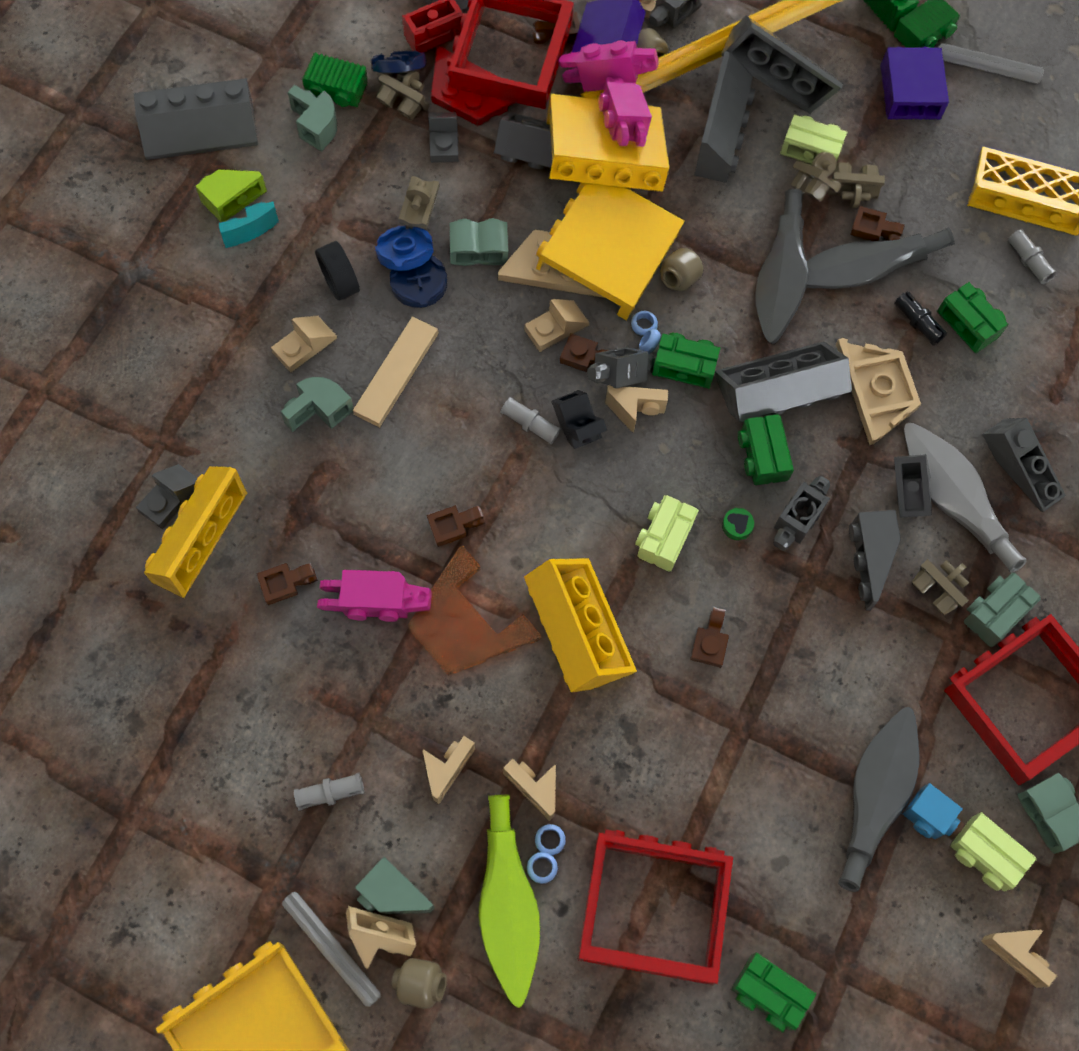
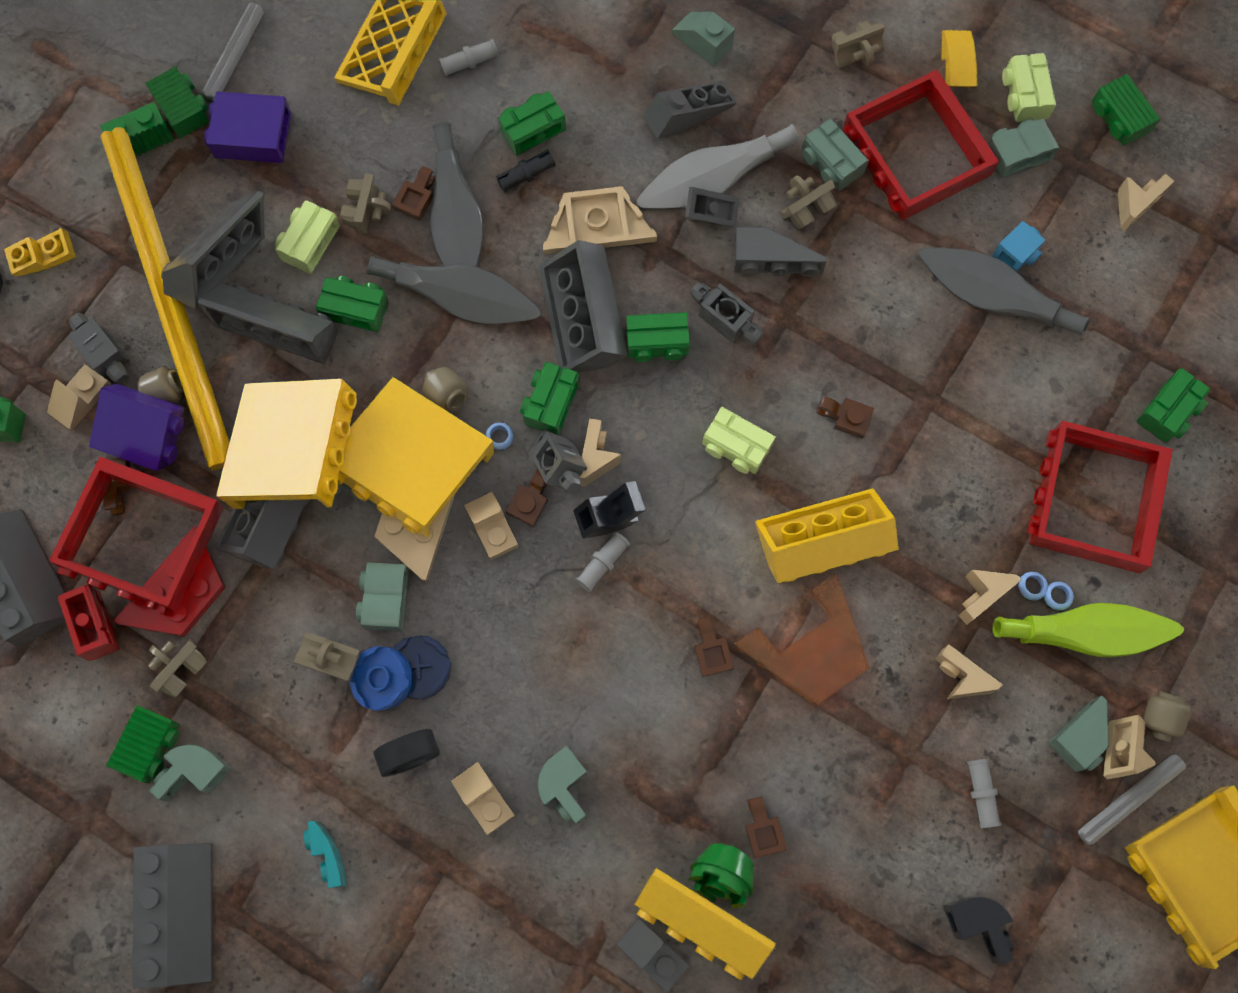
camera: 80 degrees left, 5 degrees up
(207, 794) = (983, 916): none -> black brick
(230, 191) = (279, 878): lime slope -> none
(240, 543) = (723, 874): none -> green cone
(374, 595) = (787, 733): dark pink hinge -> none
(395, 372) = (529, 699): tan tile -> none
(398, 62) = (134, 667): dark blue tile -> none
(443, 137) = (235, 625): dark grey slope -> none
(607, 60) = (189, 430): dark pink hinge -> none
(625, 111) = (261, 416): dark pink hinge -> none
(650, 340) = (527, 427): light blue piece -> none
(738, 524) = (730, 374): green tile -> none
(754, 185) = (353, 303): none -> green brick
(814, 178) = (349, 248): dark tan hips -> none
(992, 853) = (1057, 204): yellowish green brick -> none

